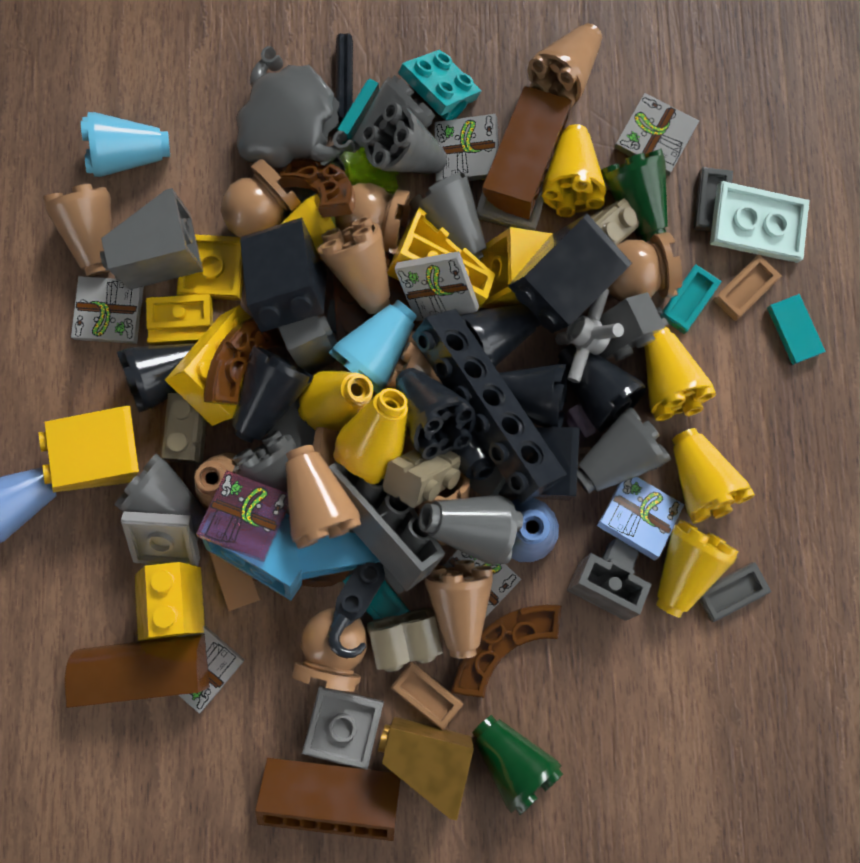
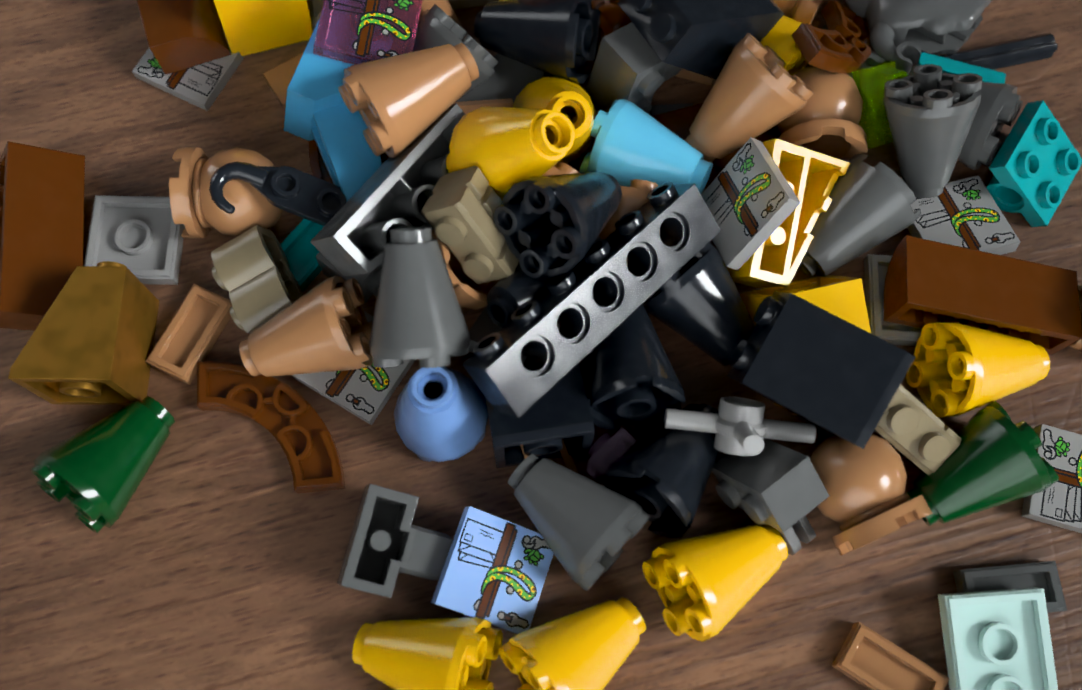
camera: 70 degrees right, 10 degrees down
(691, 299) = (844, 585): teal tile -> none

